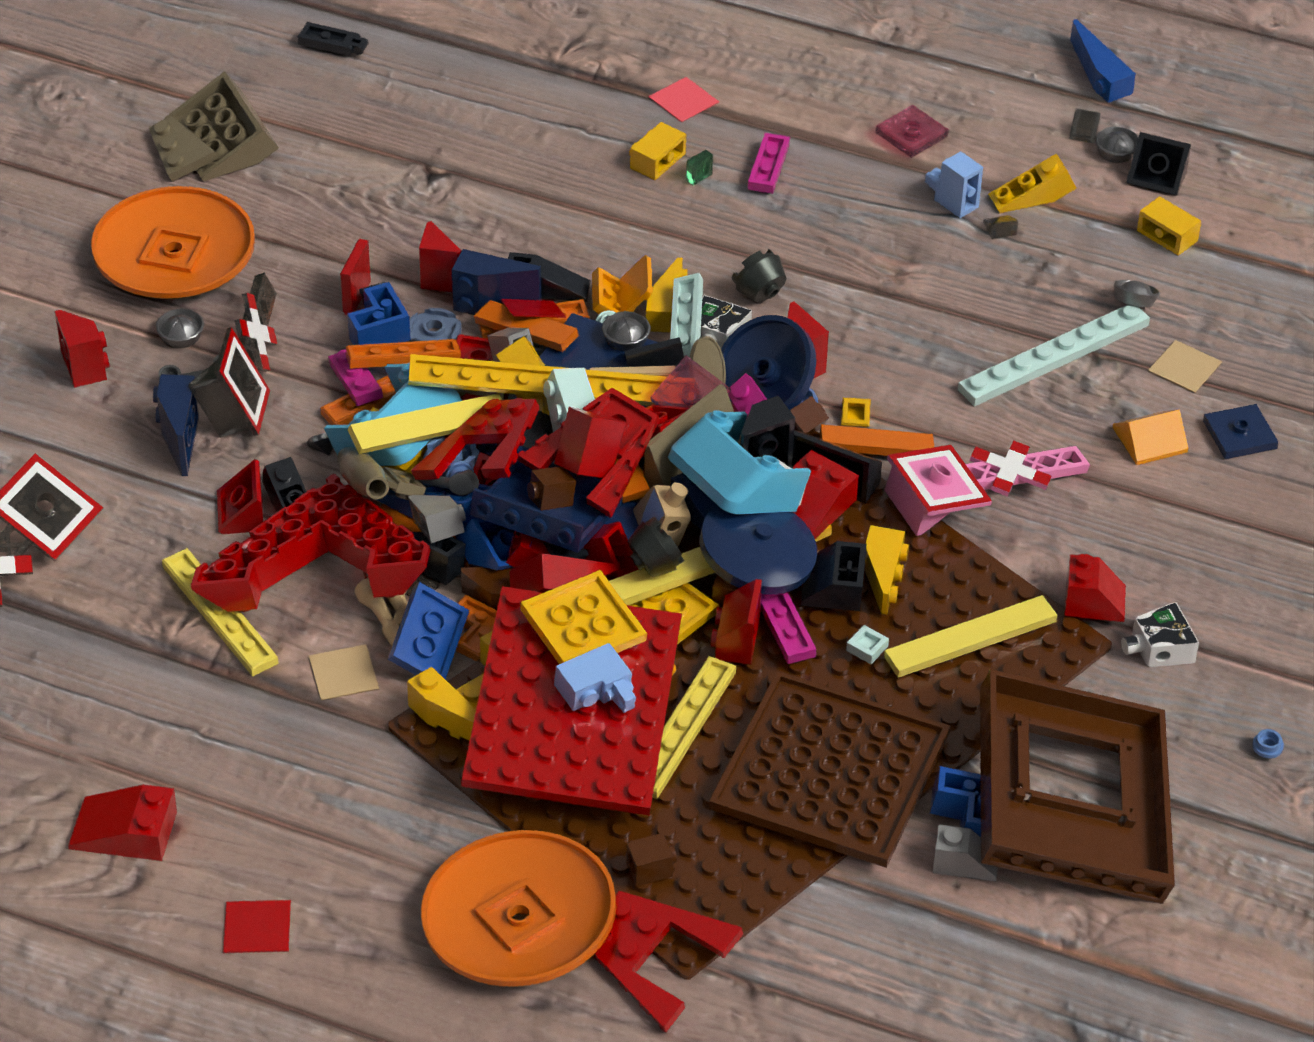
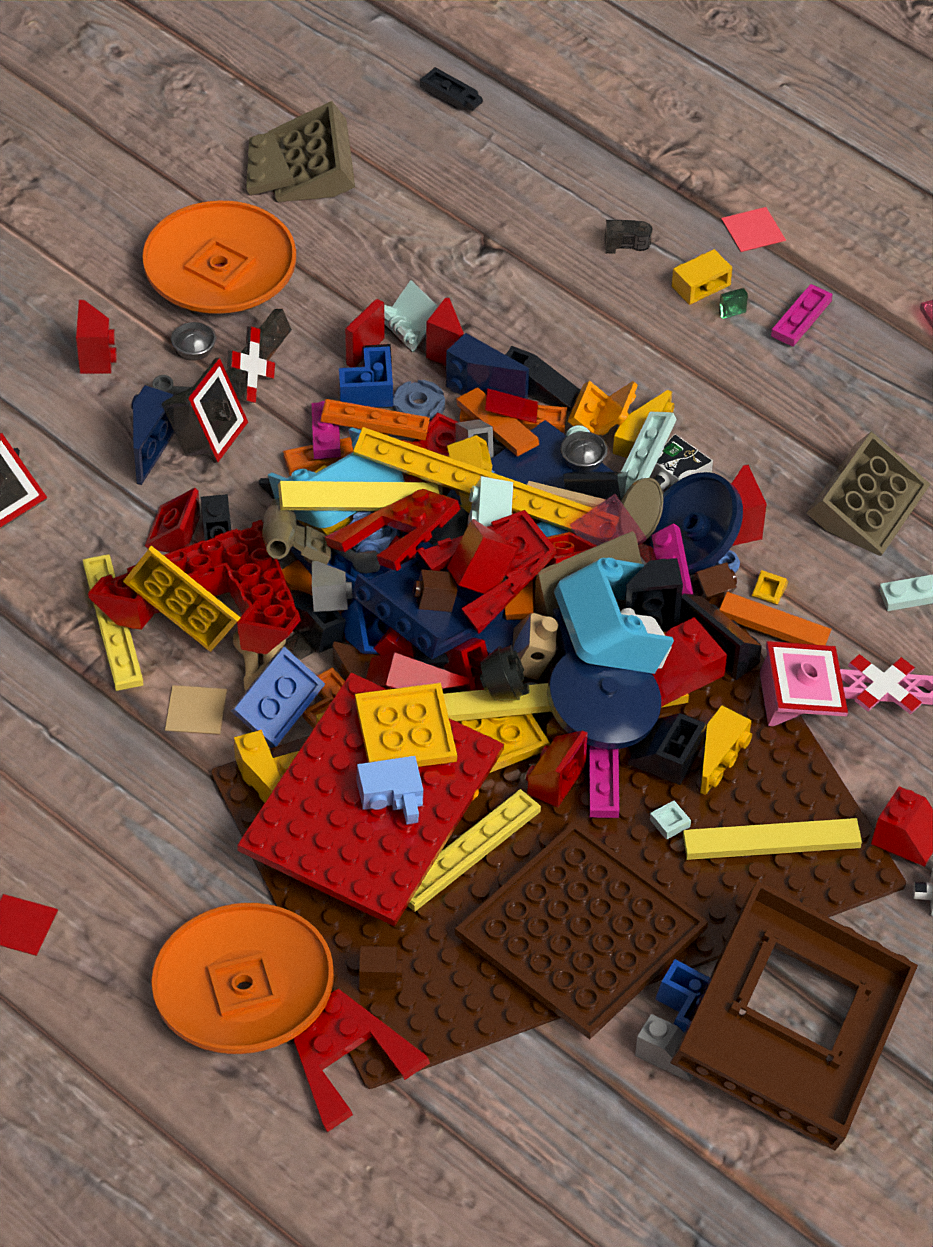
camera: 20 degrees right, 5 degrees up
(297, 560) = (181, 599): none -> yellow slope
(394, 250) = (409, 315): none -> light aqua hinge
(567, 130) = (627, 235): none -> clear smoke leg
(761, 276) = (737, 429): pearl dark grey cone -> none
(910, 306) = (869, 496): none -> dark tan slope

